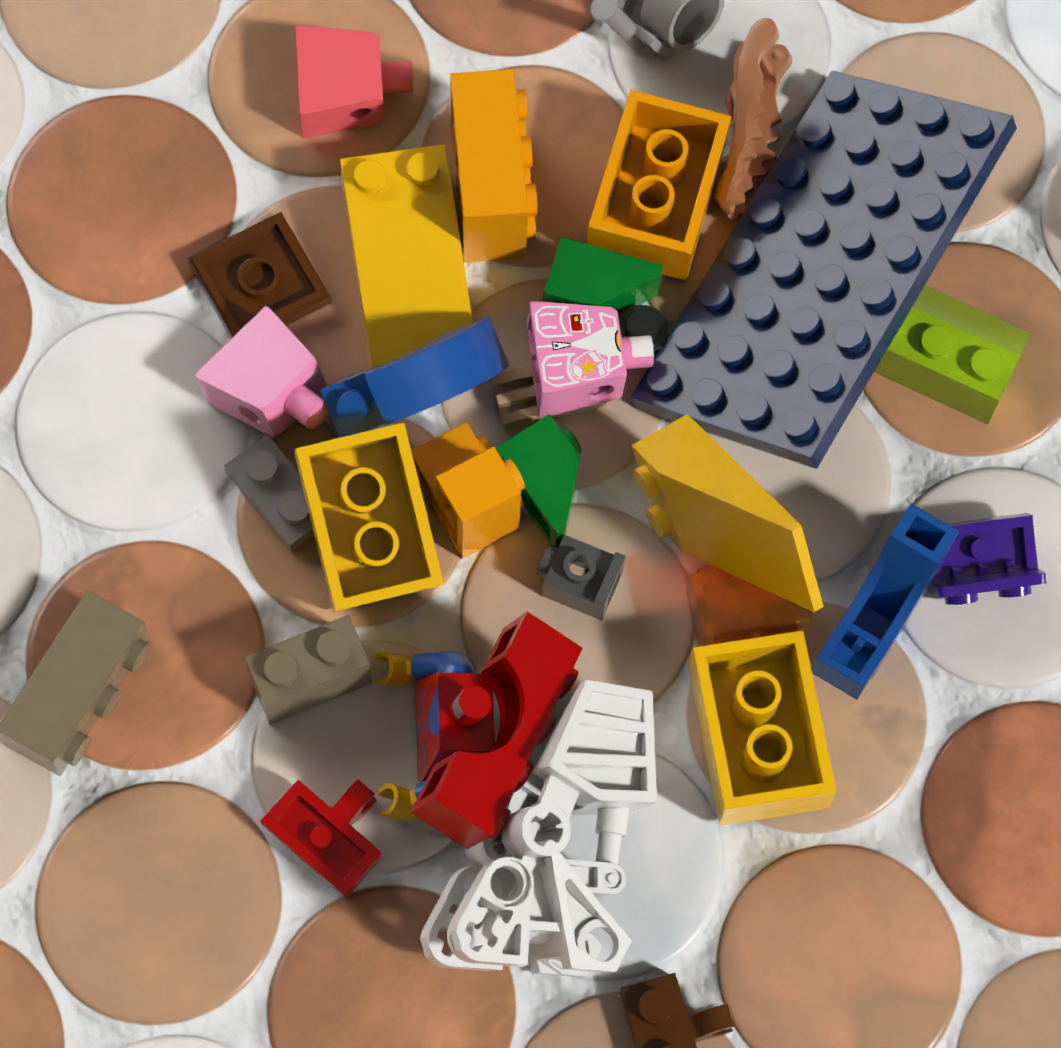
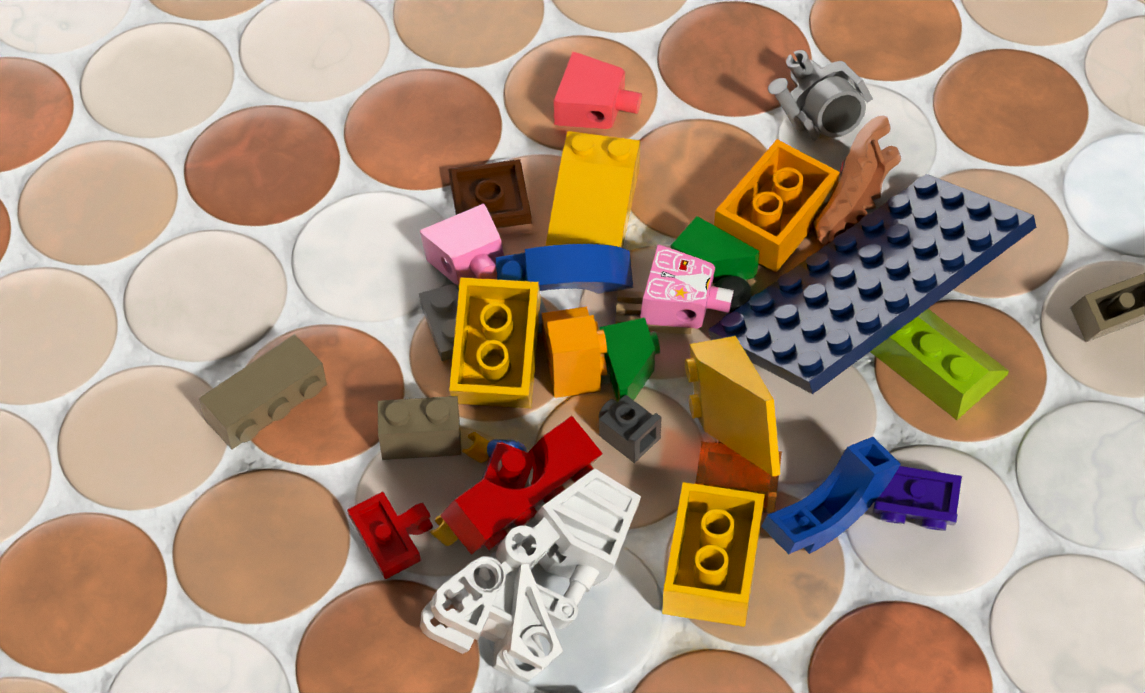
camera: 25 degrees right, 15 degrees down
(492, 165) = (666, 162): light orange brick -> none

